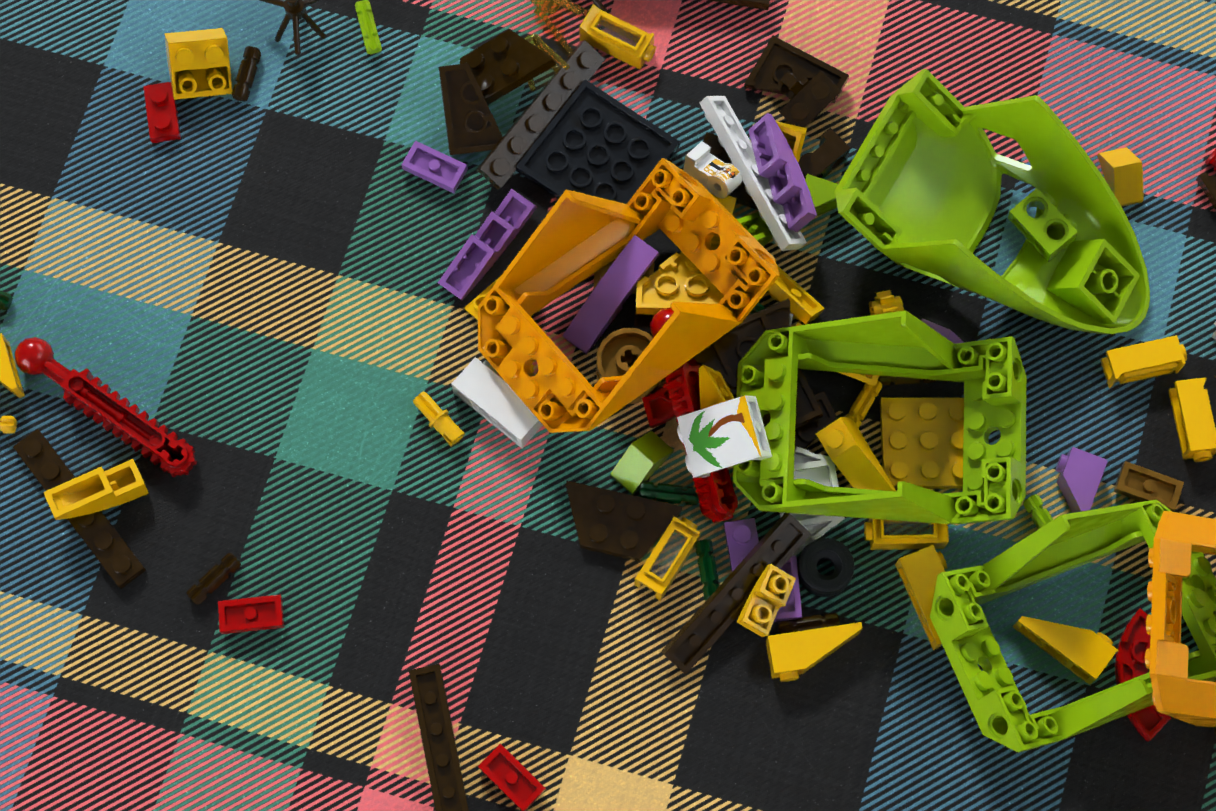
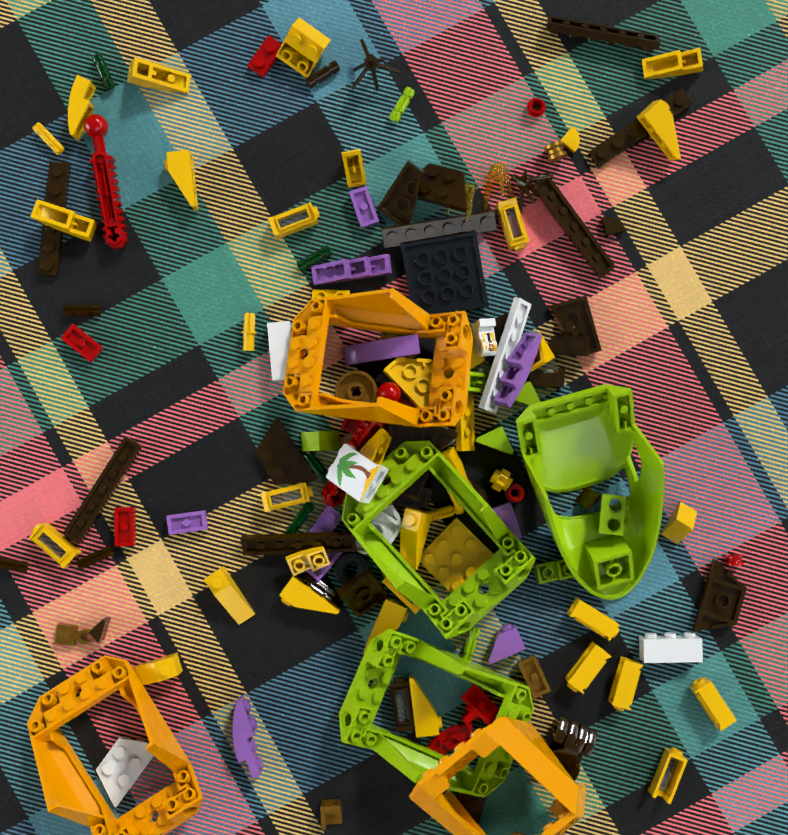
camera: 45 degrees right, 15 degrees up
(54, 240) = (157, 76): none -> yellow slope
(190, 318) = (181, 168): none -> yellow slope
(370, 250) = (294, 220): none -> yellow window
(381, 135) = (354, 168): none -> yellow slope
(432, 271) = (314, 258): none -> dark green axle
(581, 700) = (187, 522): none -> medium lavender plate
(717, 736) = (229, 595): none -> yellow slope
(838, 273) = (497, 440): none -> lime slope
(865, 578) = (362, 593): none -> dark brown tile
(919, 304) = (520, 495): none -> red plate
(999, 241) = (588, 498): none -> dark brown slope
(1041, 663) = (402, 704): none -> dark brown window
(1047, 352) = (551, 571): none -> lime slope
(1124, 579) = (478, 706): none -> red hinge

